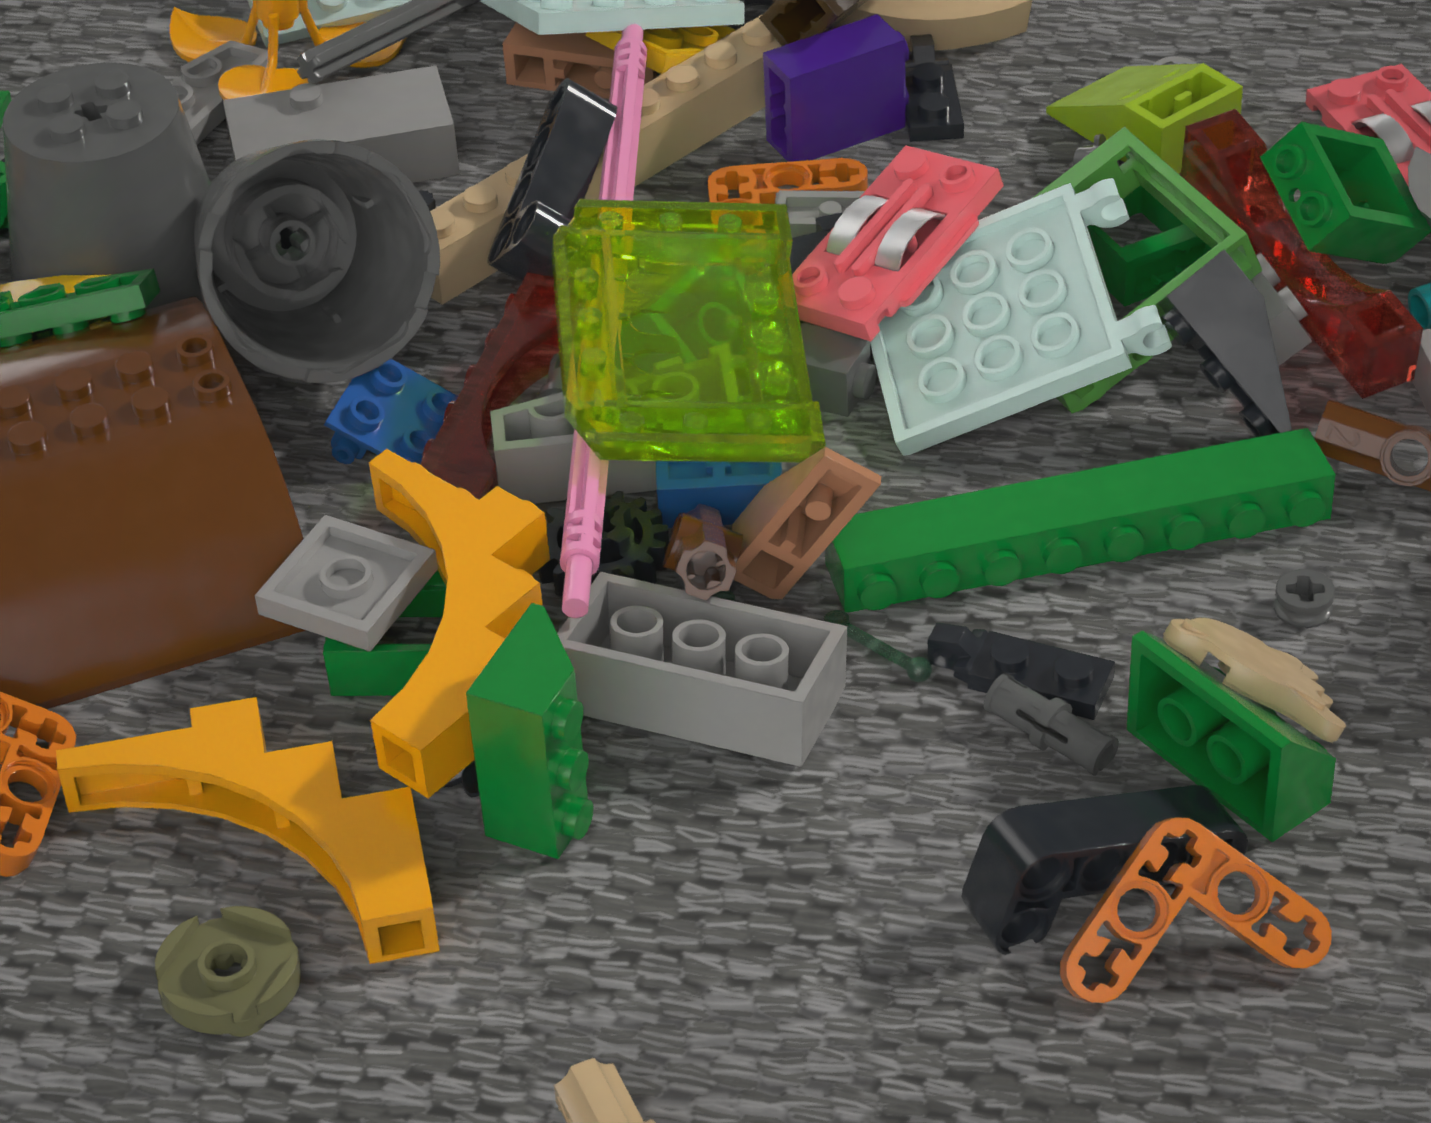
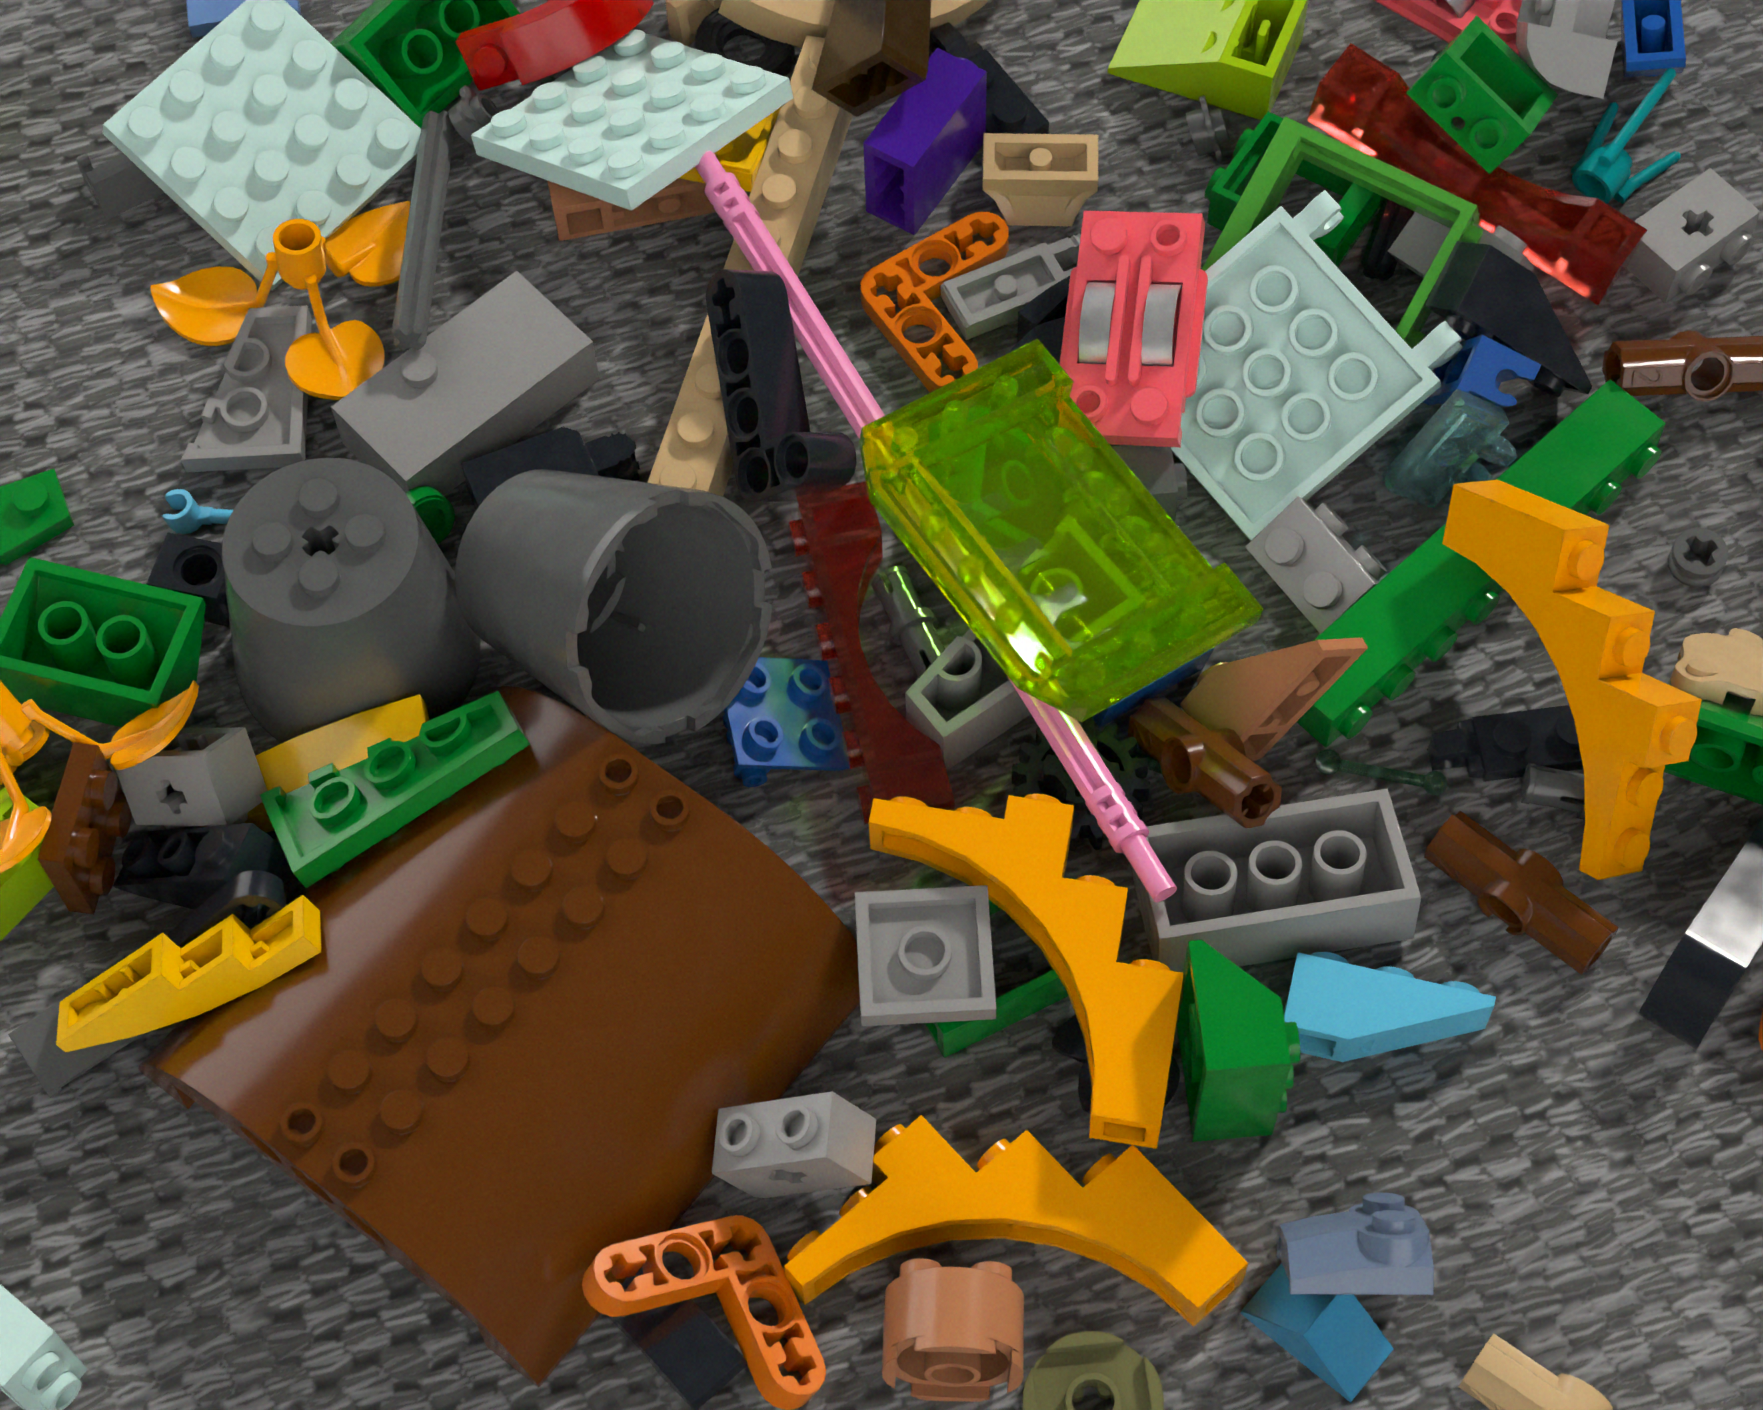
camera: 30 degrees left, 20 degrees up
(136, 674) = (794, 1145): none -> light grey brick
(148, 852) = (953, 1330): none -> nougat brick
(473, 1010) = (1322, 1332): none -> dark azure slope
(548, 935) = (1362, 1251): none -> sand blue slope
(708, 794) = (1365, 1011): none -> medium azure slope
(910, 128) = (1040, 176): none -> tan slope
(924, 767) = (1521, 891): none -> reddish brown piece
(939, 462) = (1314, 561): none -> light grey bracket
(1090, 621) = (1599, 646): none -> light orange arch
(1112, 419) = (1448, 450): none -> clear light blue hinge
(1178, 373) = (1480, 370): none -> blue hinge

